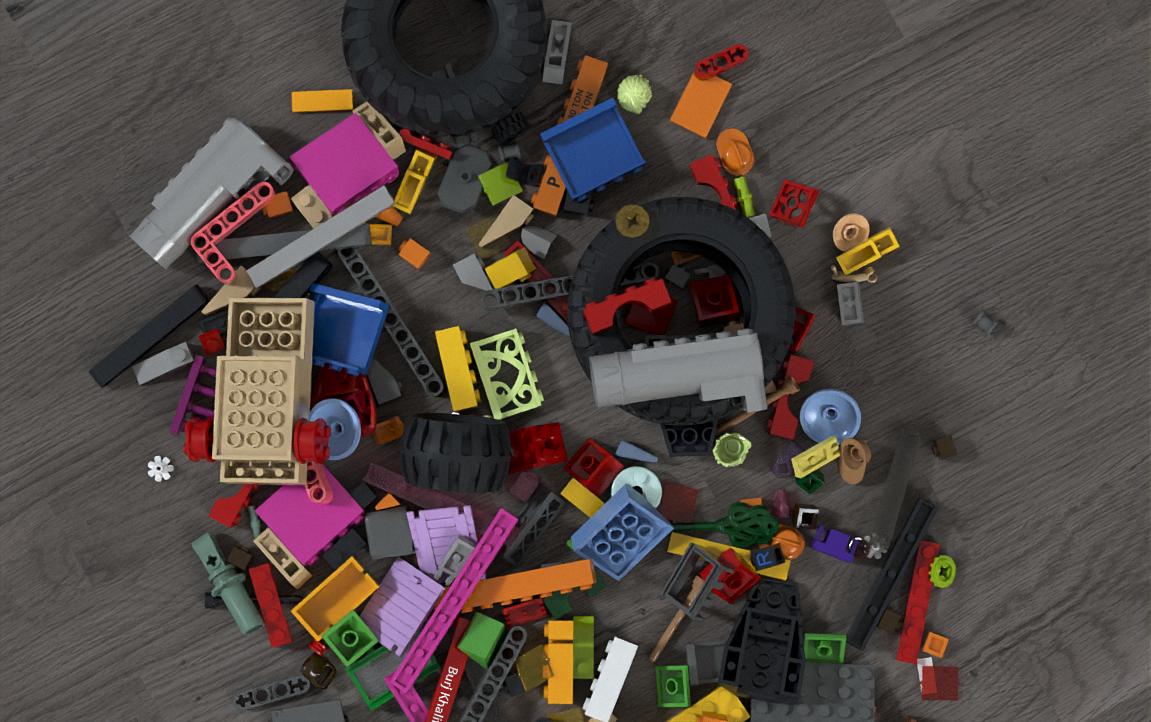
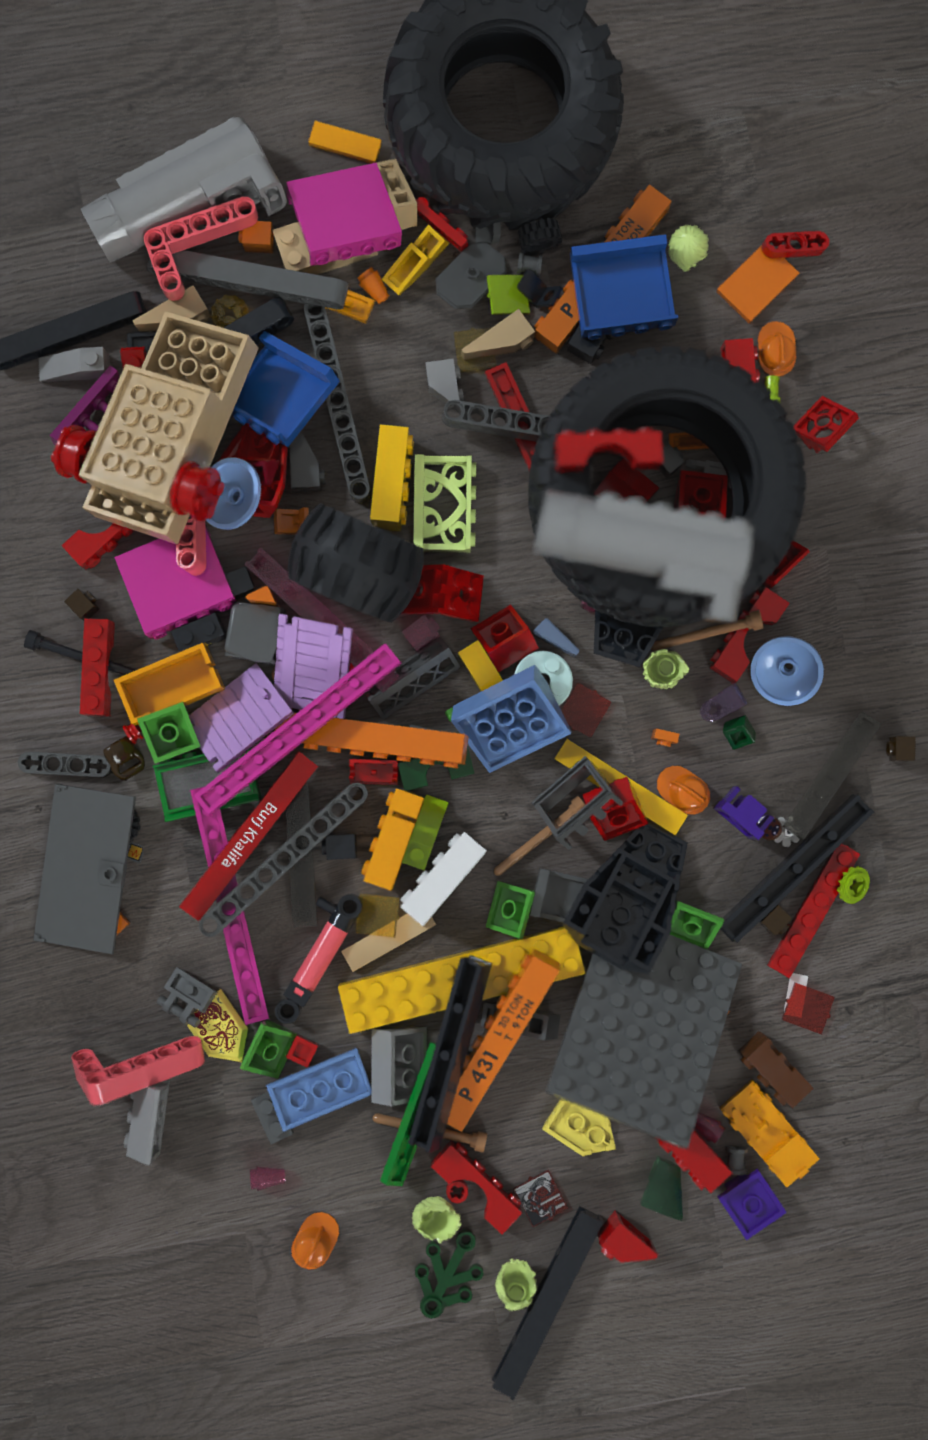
camera: 20 degrees right, 0 degrees up
(163, 472) = (30, 479): white plant -> none
(228, 584) = (56, 628): sand green piece -> none
(255, 522) = (112, 575): sand green piece -> none
(282, 558) = (127, 622): tan slope -> none
(321, 237) = (290, 278): light grey tile -> none
(413, 253) = (387, 338): orange brick -> none
(455, 559) = (316, 683): light grey hinge -> none
(482, 639) = (316, 784): bright green slope -> none
(510, 268) = (488, 387): yellow brick -> none
(534, 668) = (361, 835): clear yellow piece -> none
(538, 240) = (528, 370): light grey brick -> none
(549, 317) = (513, 459): sand blue slope -> none
(557, 52) = (618, 174): light grey slope -> none
(629, 212) = (647, 348): clear yellow gear -> none
(742, 518) = (647, 764): dark green piece -> none
(767, 557) = (664, 802): black brick -> none
(781, 505) = (698, 751): clear pink cone -> none
(810, 518) = (724, 776): dark brown plate -> none
(815, 457) = (755, 709): light yellow hinge -> none
(840, 276) = (849, 523): tan piece -> none
(850, 303) = (850, 554): light grey hinge -> none
(853, 459) = (795, 727): medium nougat piece -> none
(857, 233) = (883, 481): light nougat dish -> none
(868, 251) = (889, 503): yellow slope -> none
(935, 644) = (818, 964): orange plate -> none

